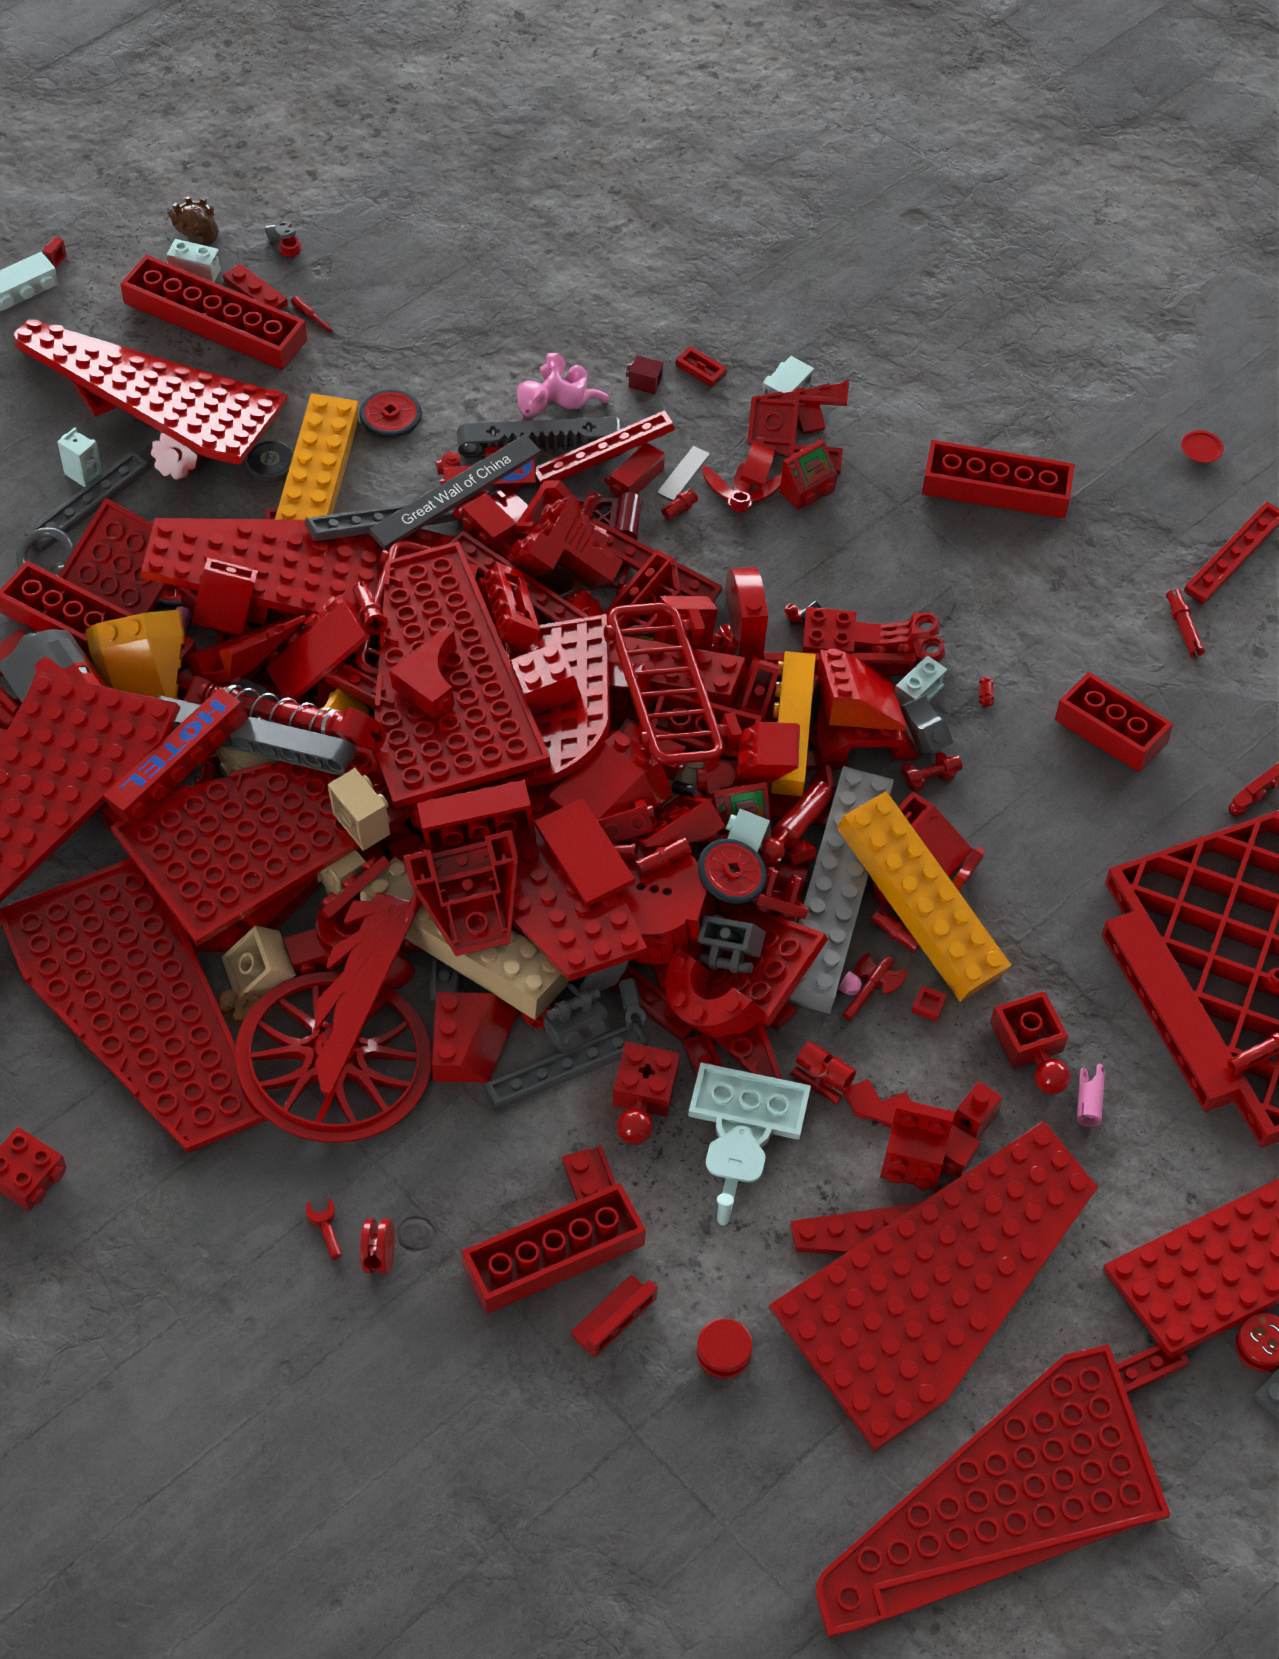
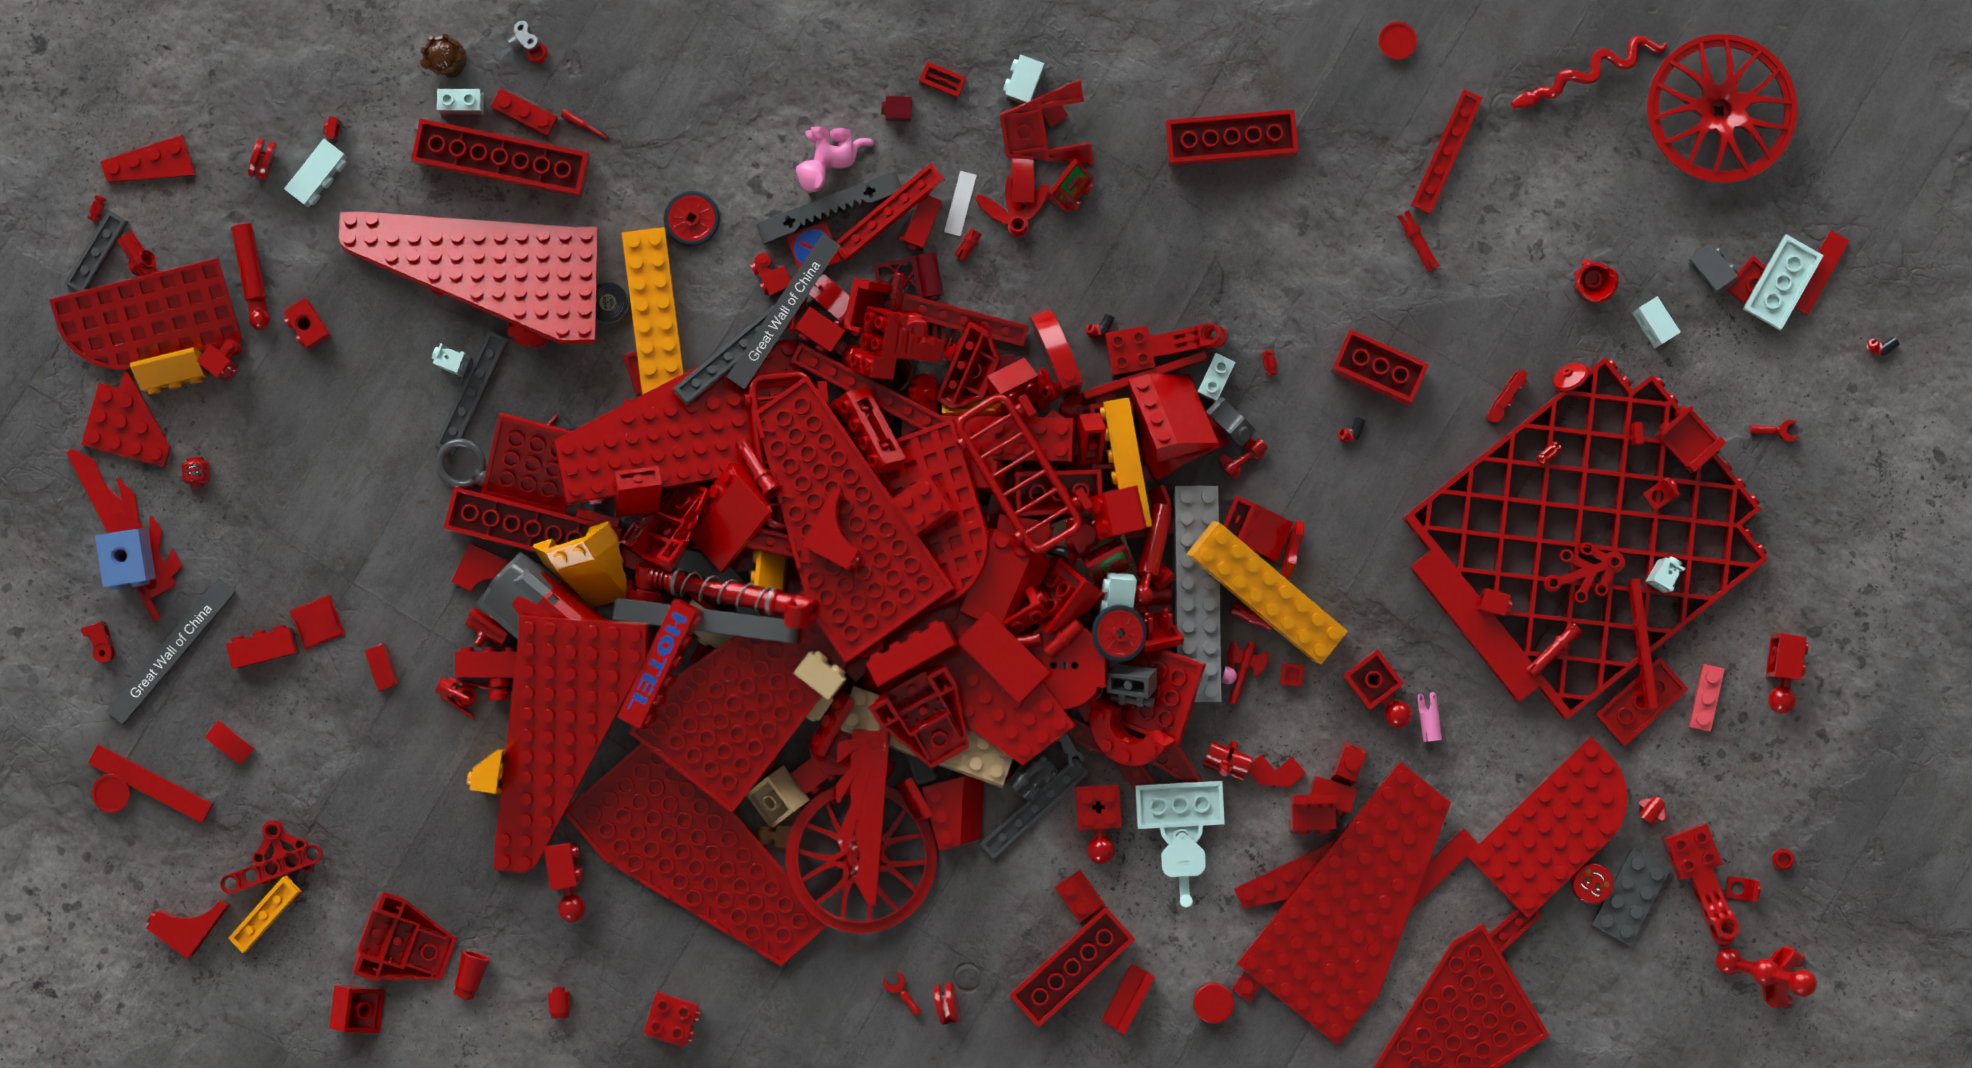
camera: 15 degrees left, 30 degrees up
(422, 1004) = (914, 800): none -> red tile
(773, 1343) = (1246, 986): none -> red plate
(1060, 782) = (1353, 433): none -> arm
(1069, 1269) = (1445, 862): none -> red tile
(1201, 977) = (1495, 602): none -> red brick

